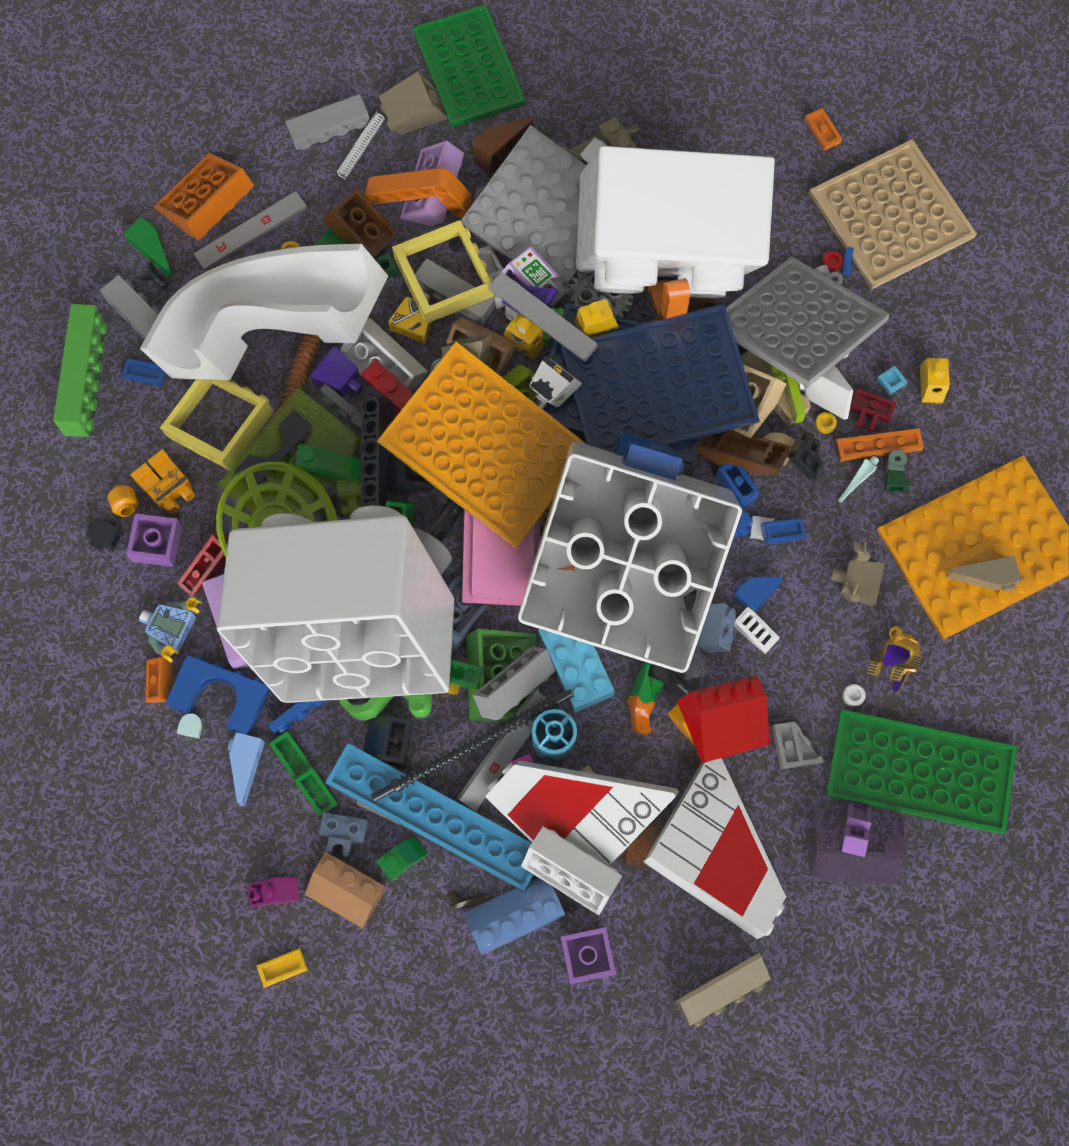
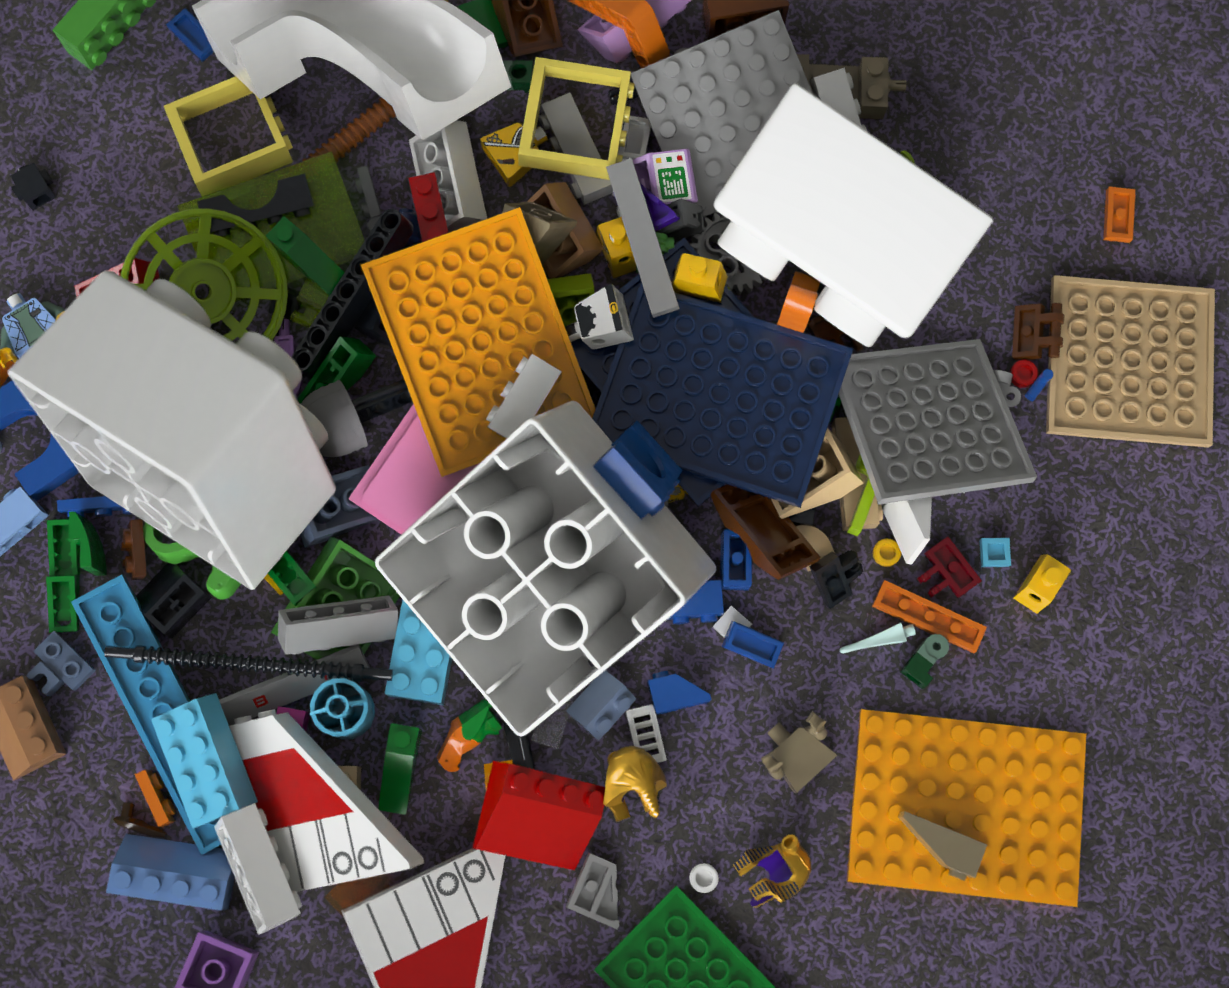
camera: 30 degrees right, 5 degrees up
(123, 500) = (76, 161): light orange head -> none
(154, 540) = (77, 225): medium lavender brick -> none
(169, 488) = (131, 167): light orange hips -> none
(307, 738) = (91, 548): none -> green slope
(337, 373) = (390, 162): dark purple torso -> none
(343, 720) = (134, 544): none -> reddish brown hinge
(401, 858) = (99, 733): green slope -> none
(460, 869) = (160, 807): none -> orange plate
(488, 823) = (204, 760): none -> medium azure brick
(538, 462) = (523, 396): none -> white brick
(613, 749) = (399, 768): none -> green slope
(764, 654) = (632, 770): none -> pearl gold piece
(819, 234) = (1029, 328): none -> reddish brown plate

